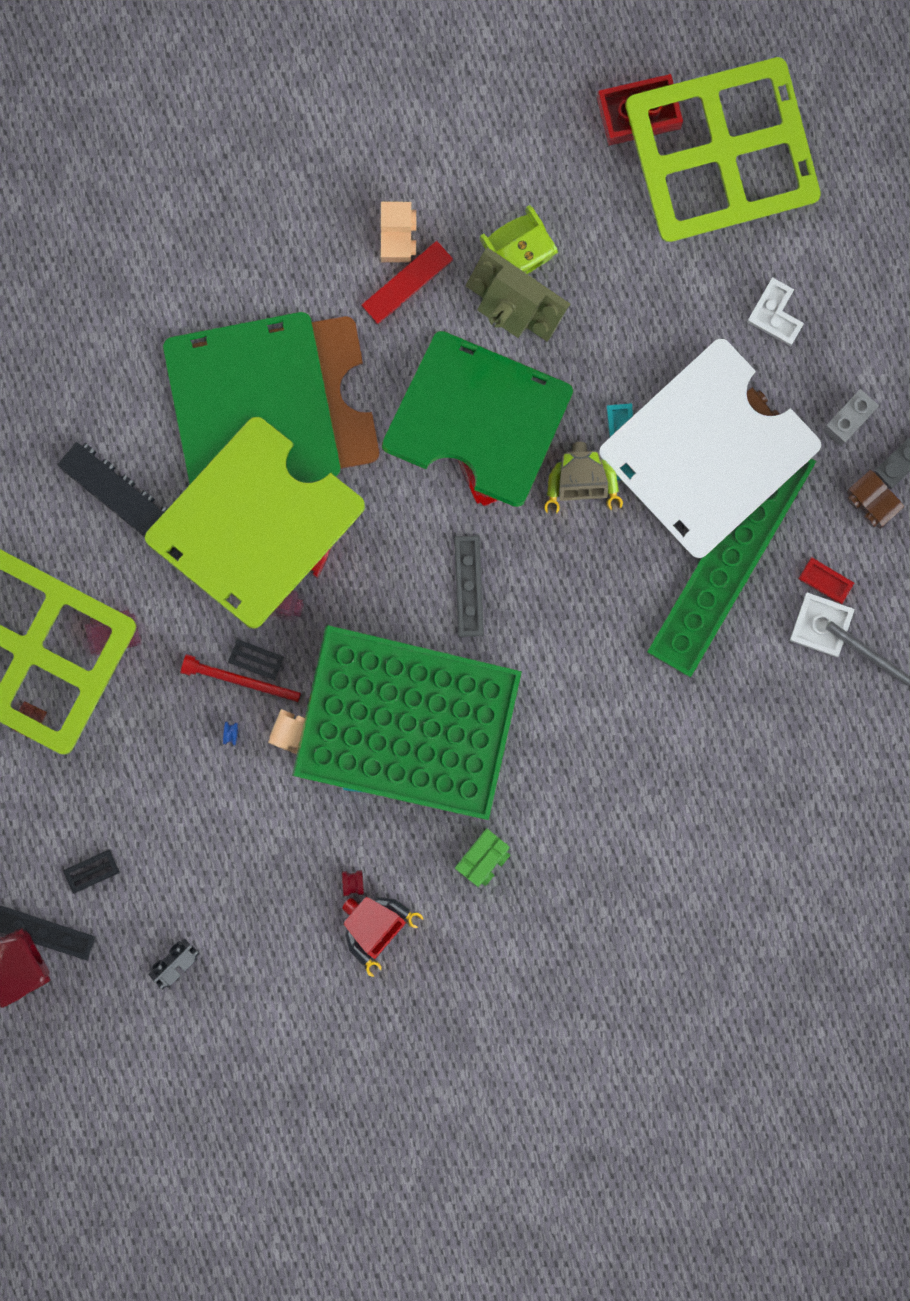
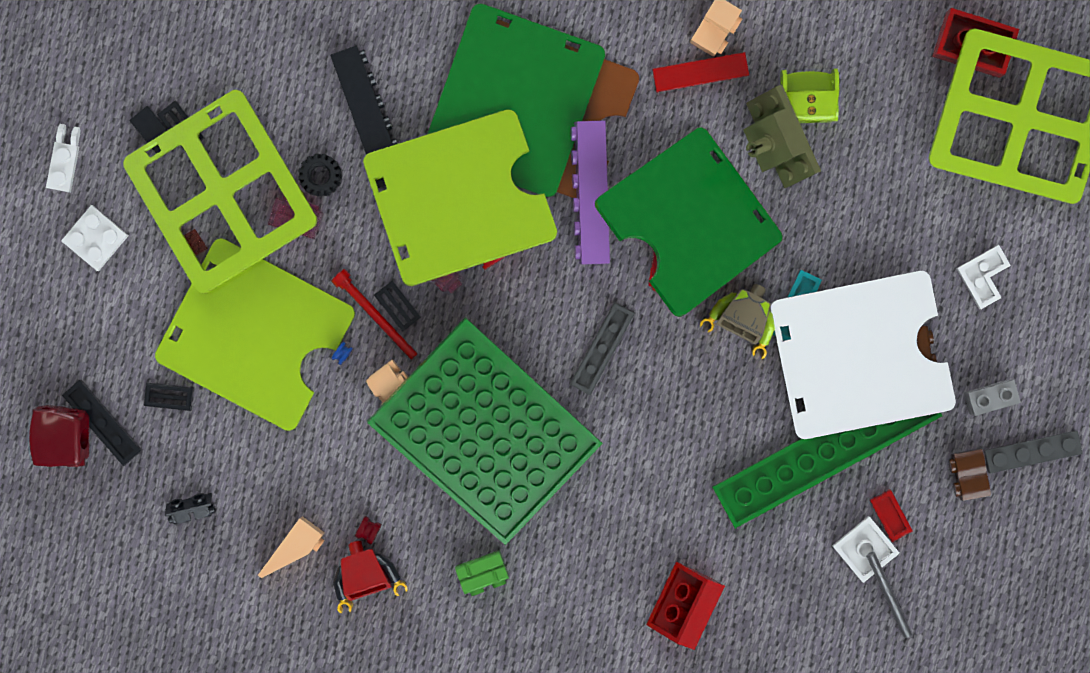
camera: 35 degrees right, 5 degrees up
(102, 570) = (334, 175): none -> black tyre
(138, 768) = (253, 336): none -> lime door
(294, 935) = (297, 544): none -> light nougat slope
(366, 439) = (590, 183): none -> medium lavender brick
(688, 775) = (685, 605): none -> red slope

